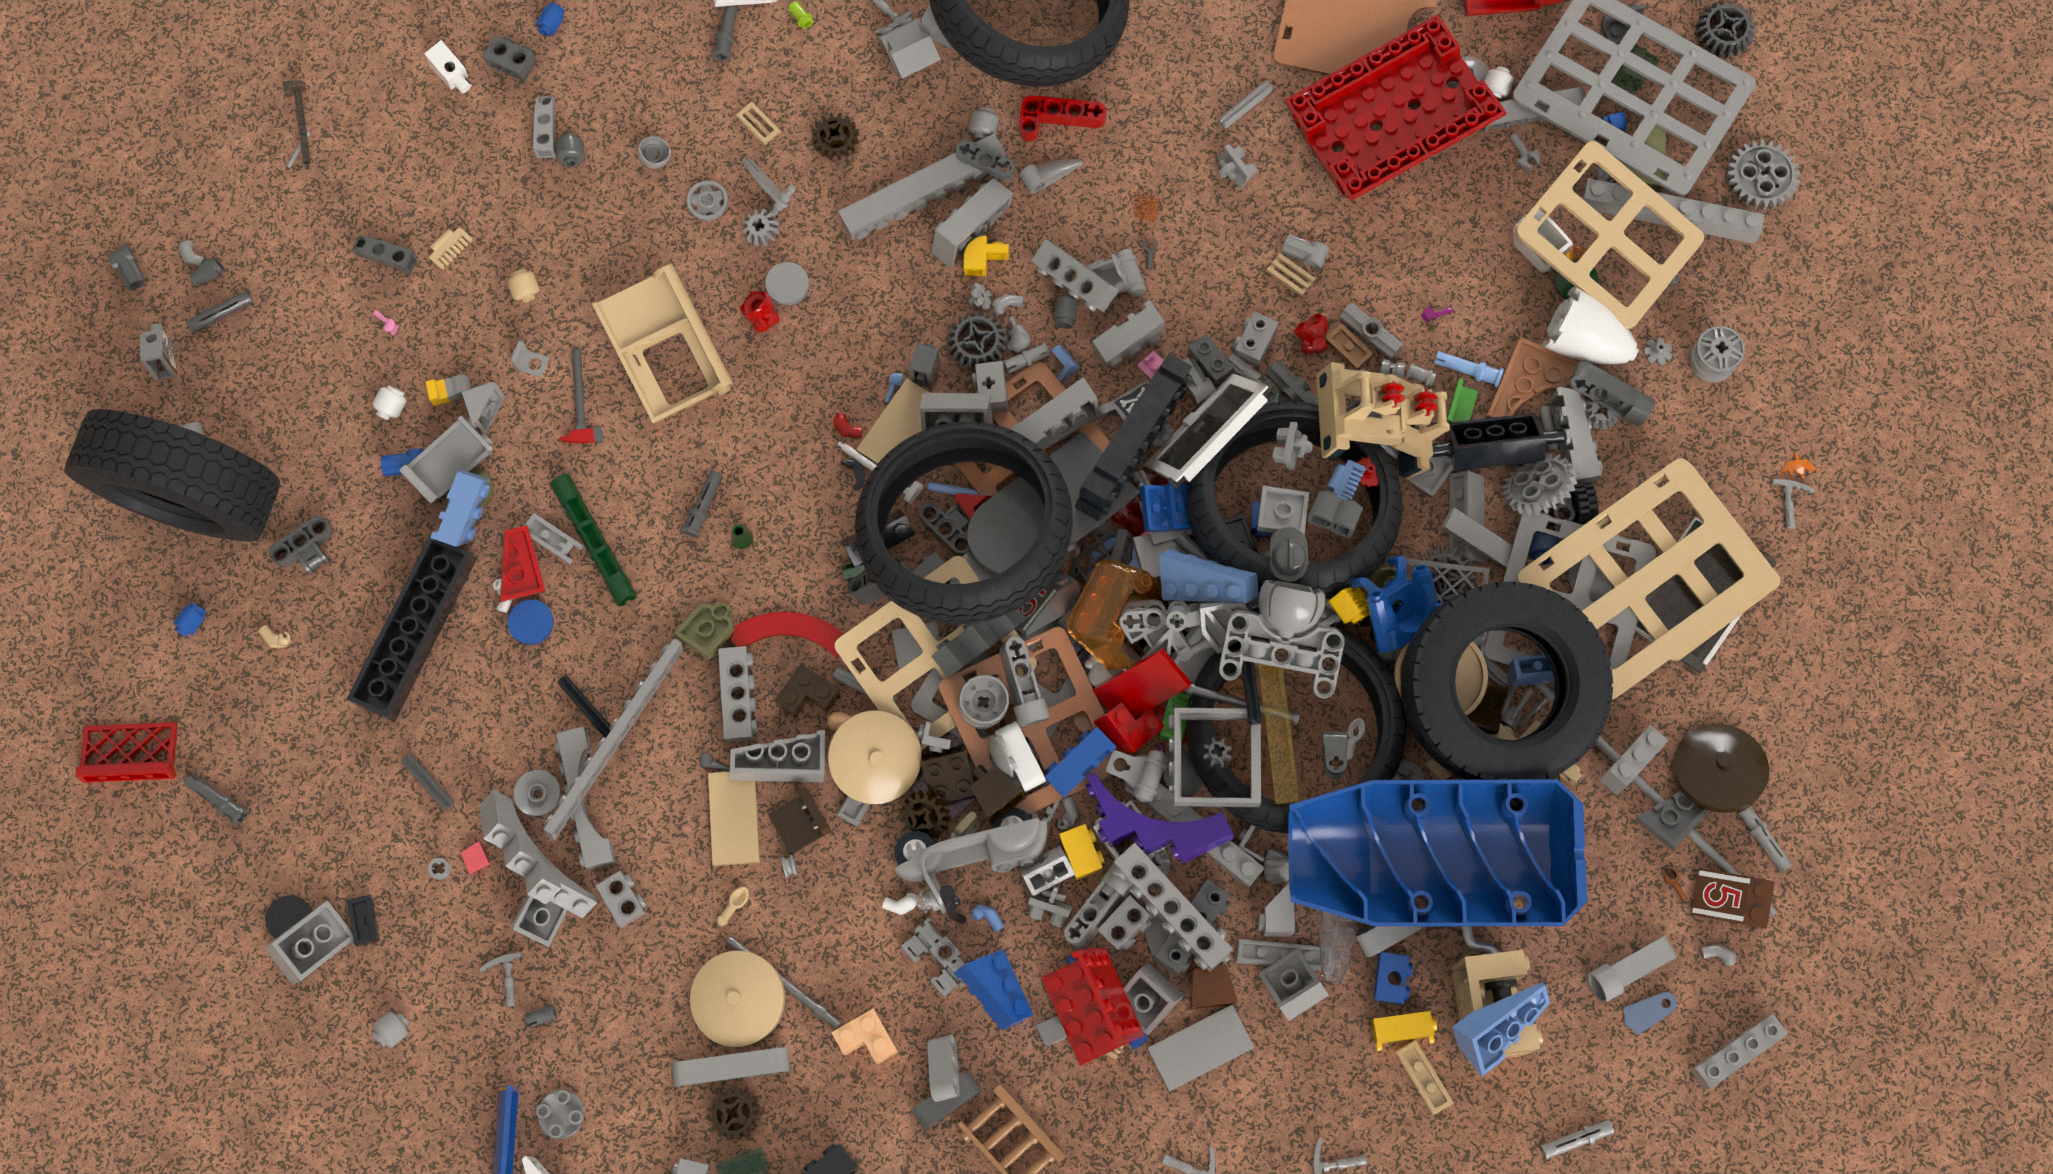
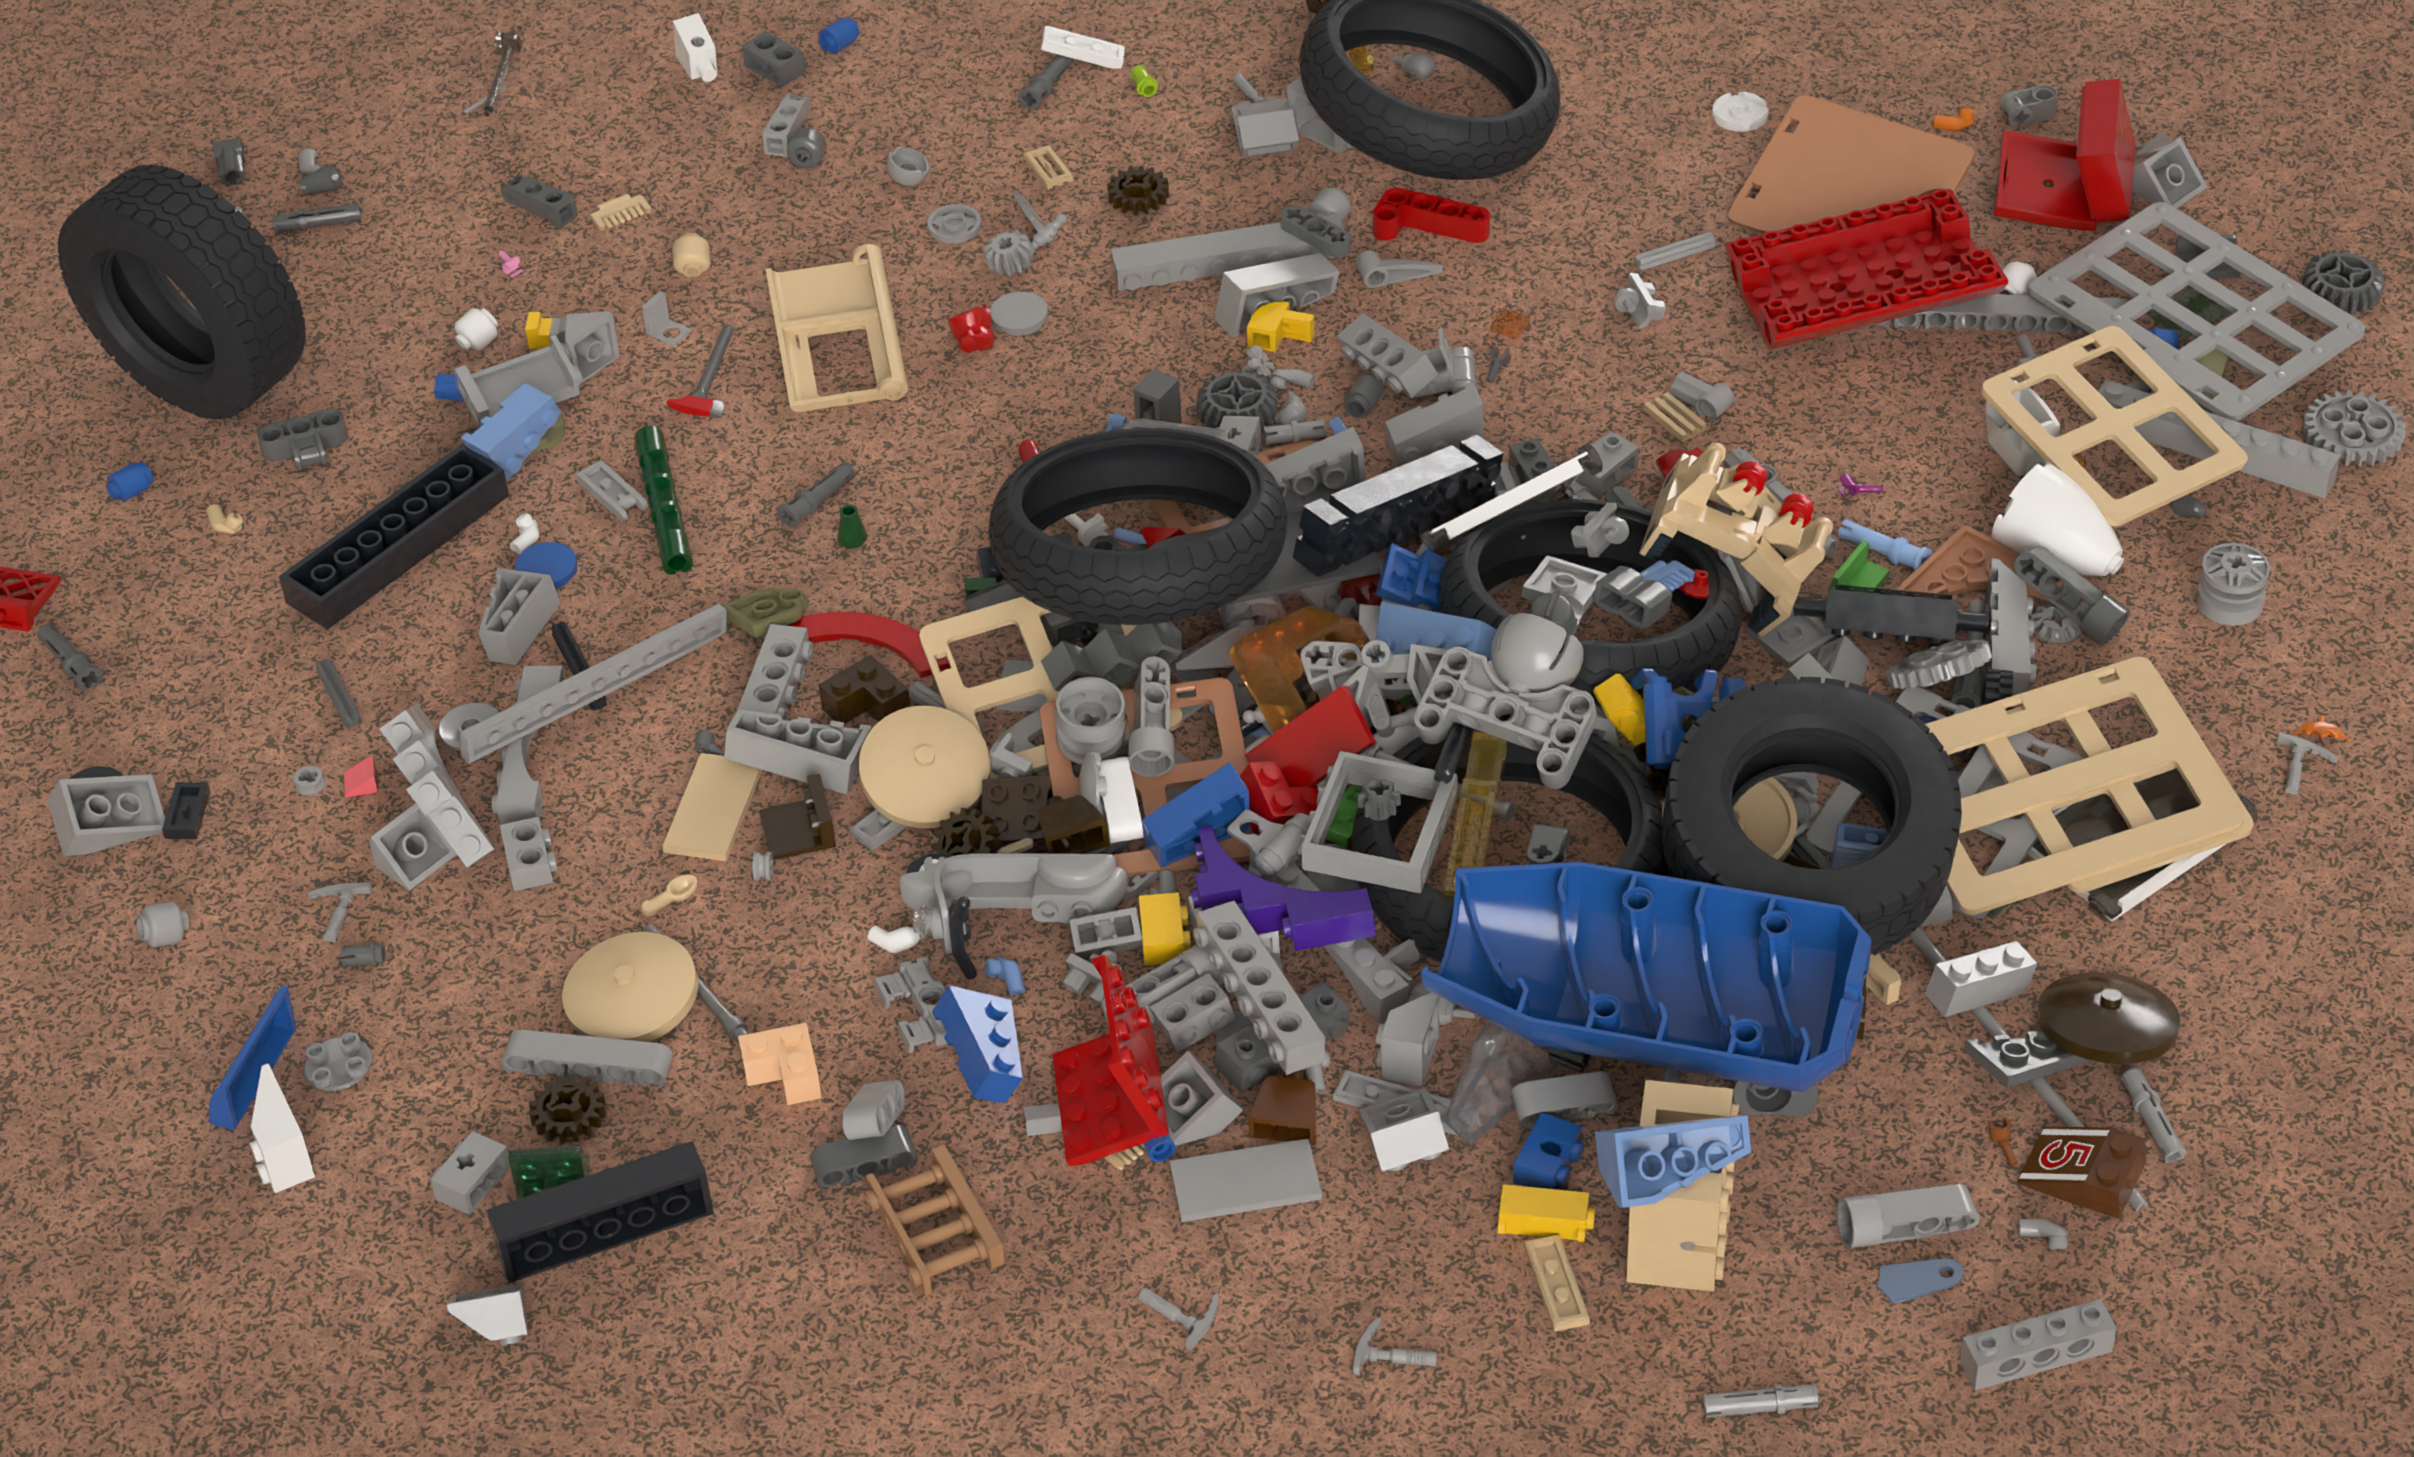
camera: 15 degrees right, 30 degrees down
(519, 566) = (558, 505): red wing -> none
(530, 682) = (516, 614): none -> light grey wedge
(1658, 351) = (2155, 577): light grey plant -> none

